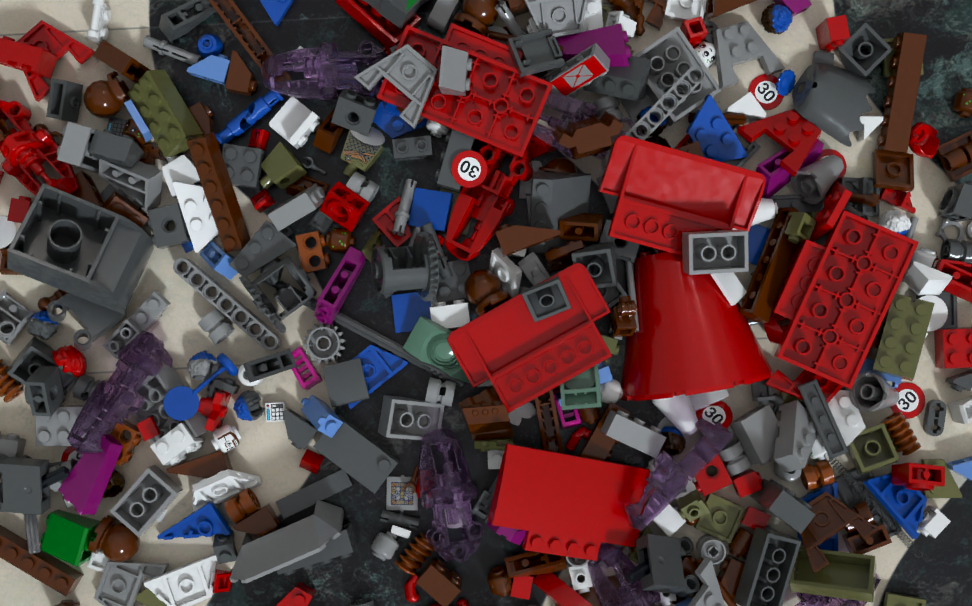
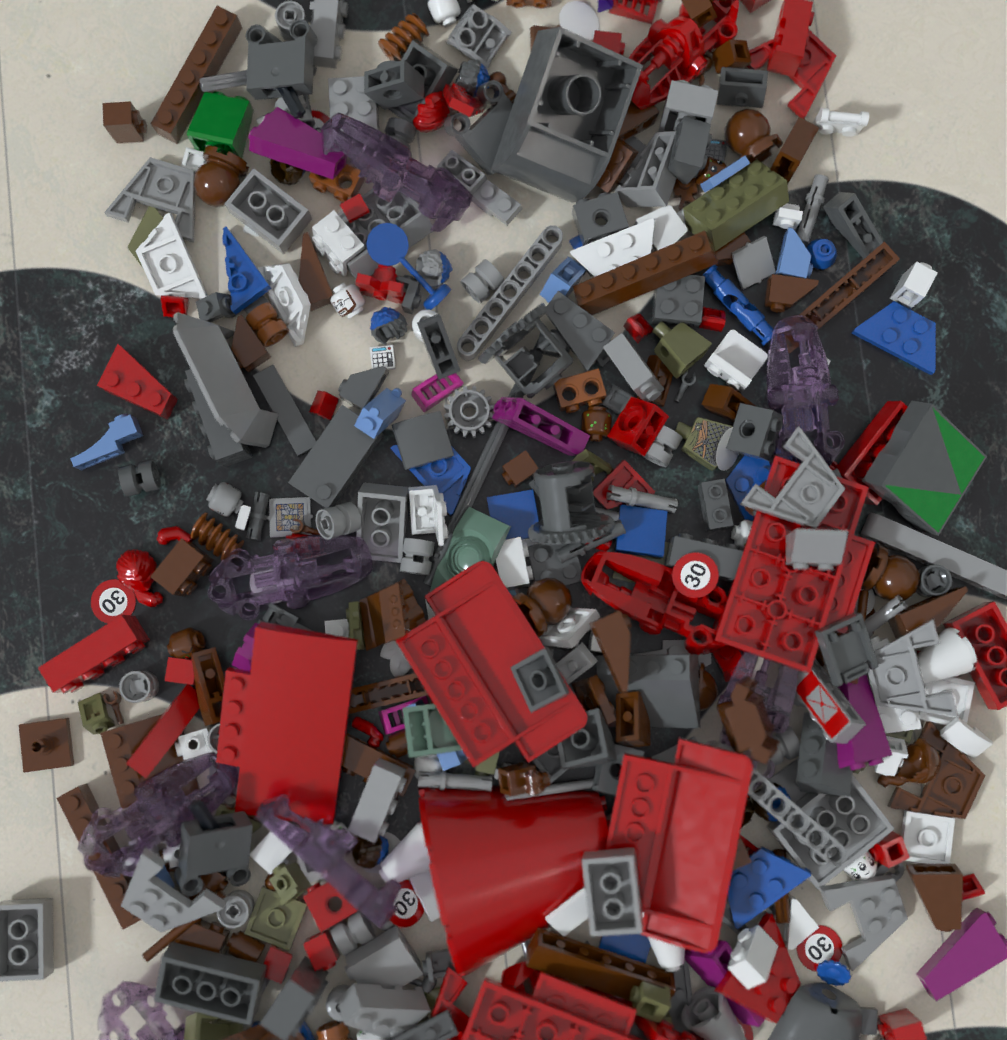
camera: 85 degrees right, 5 degrees down
(36, 106) = (731, 55): none -> reddish brown brick
(63, 335) = (459, 100): none -> red wing
(177, 71) = (788, 216): none -> white bracket
(214, 102) = (753, 262): none -> light grey piece
(374, 305) = (519, 469): none -> reddish brown brick
(405, 381) = (428, 512): none -> white bracket
(408, 454) = (338, 520): none -> light grey wheel
(621, 371) = (455, 781): none -> light grey pin
(770, 145) = (752, 956): none -> white brick
(776, 18) = (914, 956): blue piece -> none

